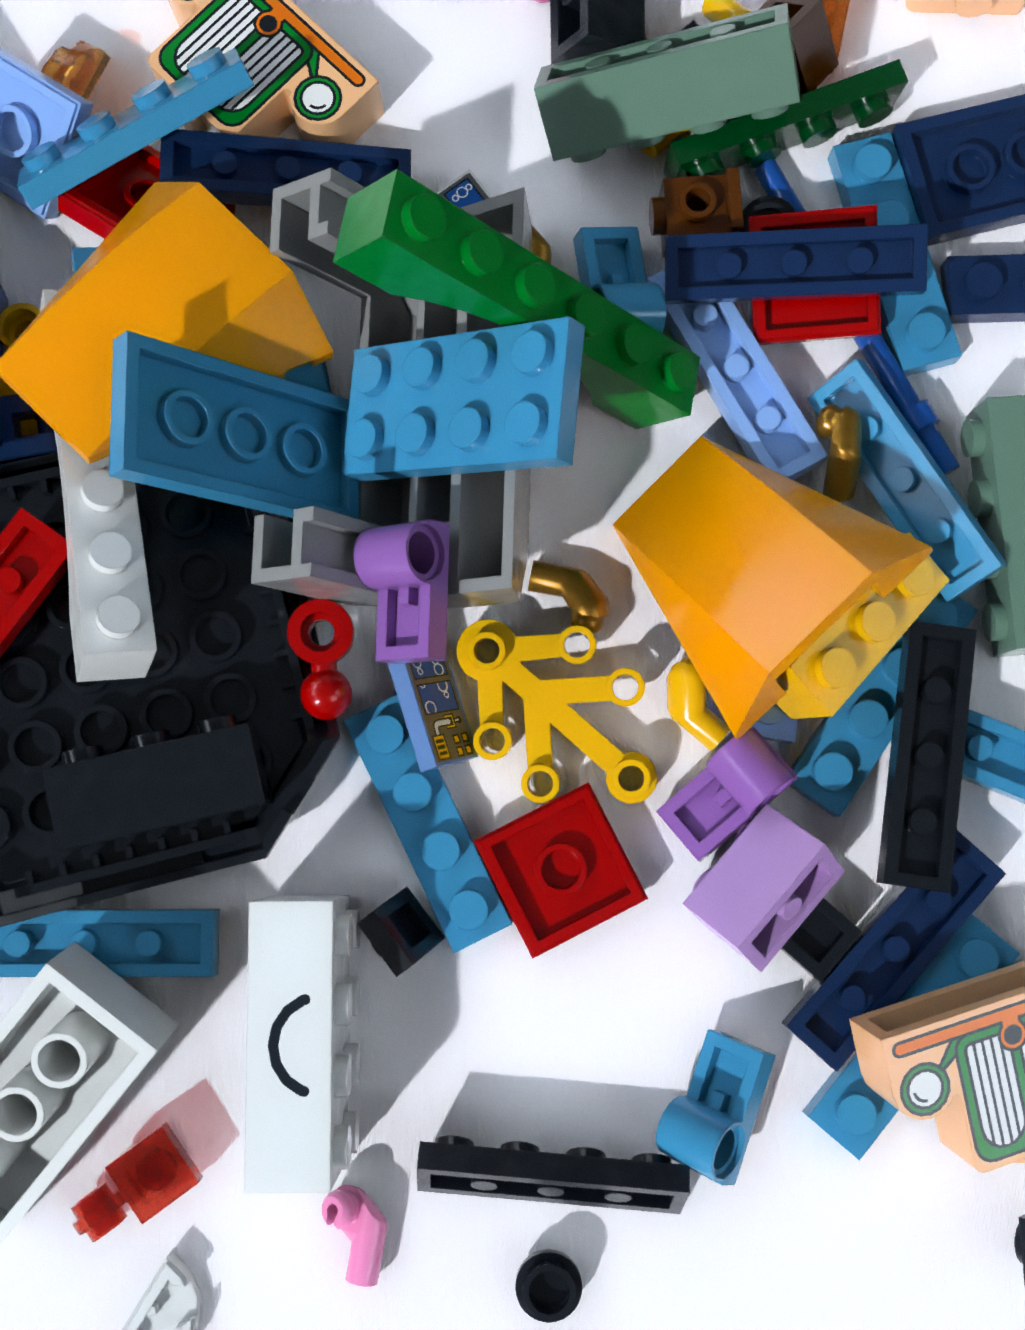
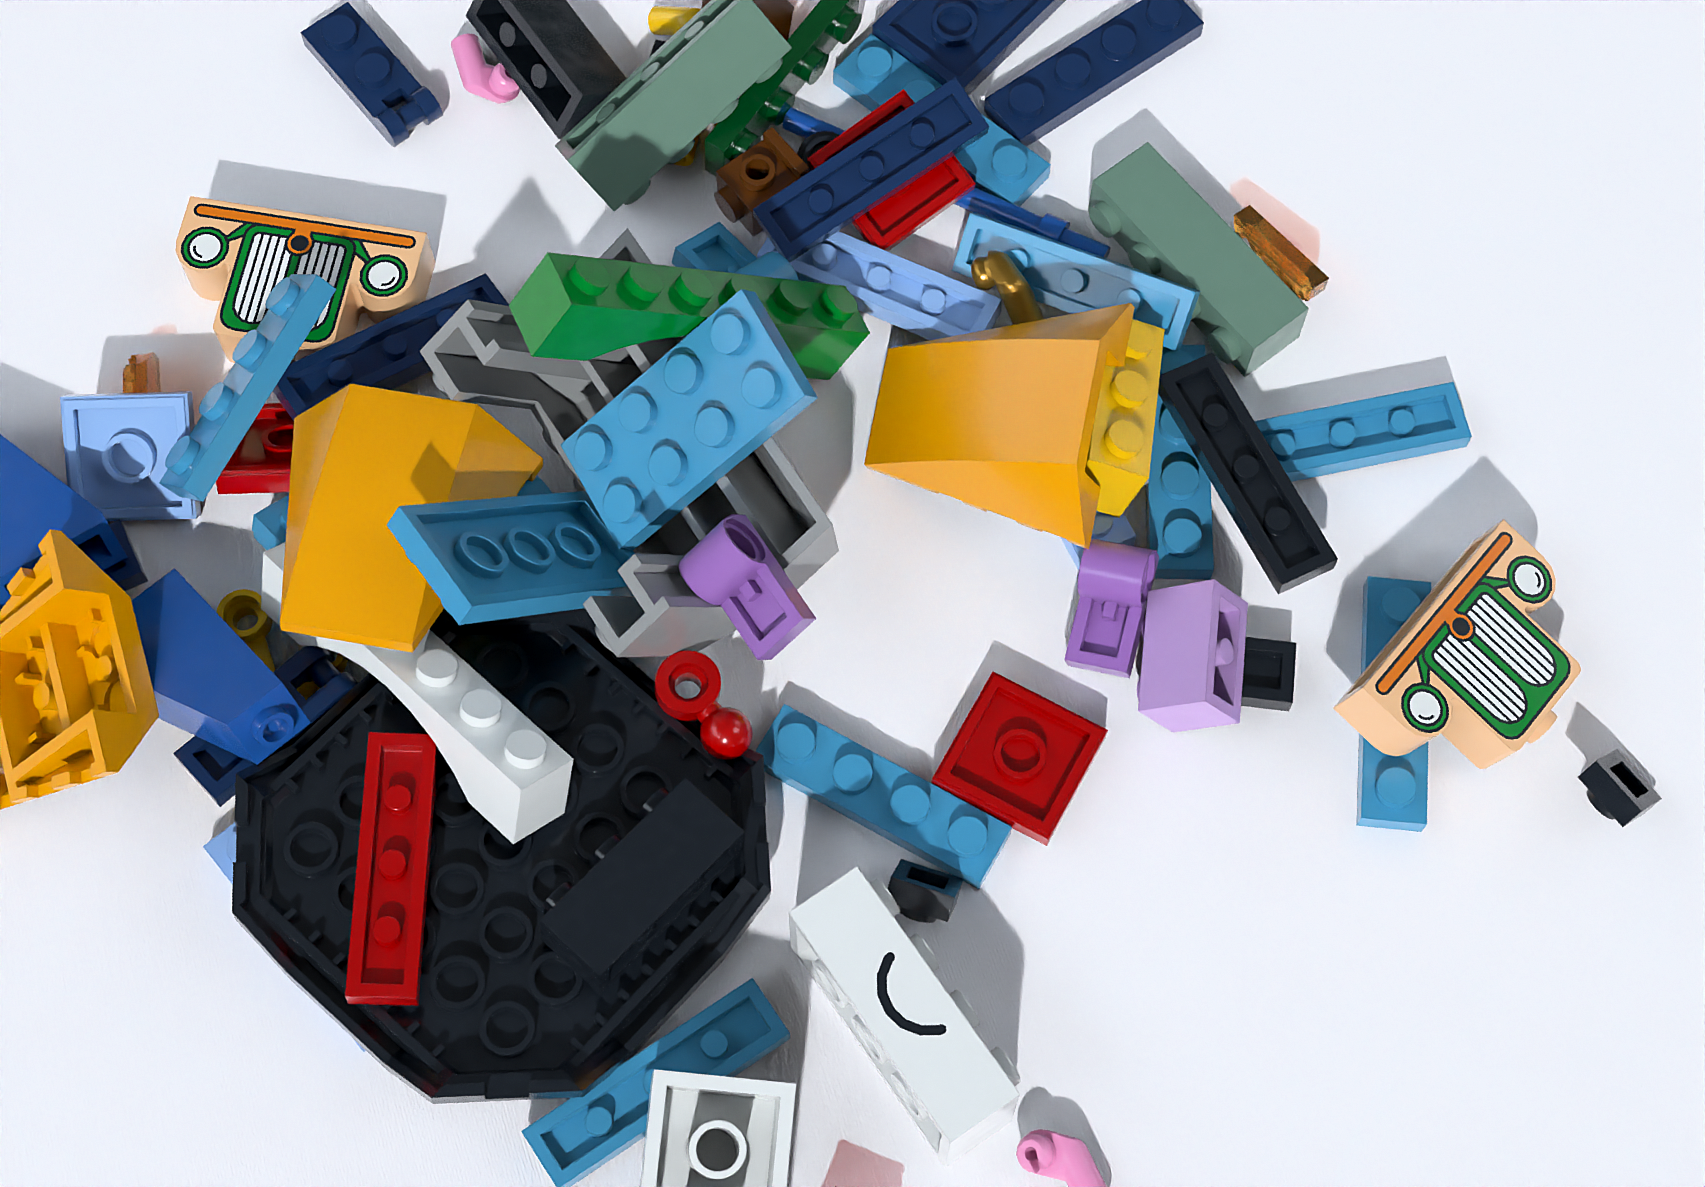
camera: 35 degrees left, 15 degrees down
(433, 713) = (818, 696): tile -> none
(547, 704) = (915, 634): yellow plant -> none
(548, 1285) = (1254, 1099): black plate -> none
(572, 1178) = (1191, 1004): black plate -> none
(577, 590) = (875, 531): pearl gold arm -> none
(688, 705) = (1027, 560): yellow arm -> none
(718, 1114) = (1289, 865): dark azure plate -> none
(890, 954) = (1331, 650): dark blue plate -> none

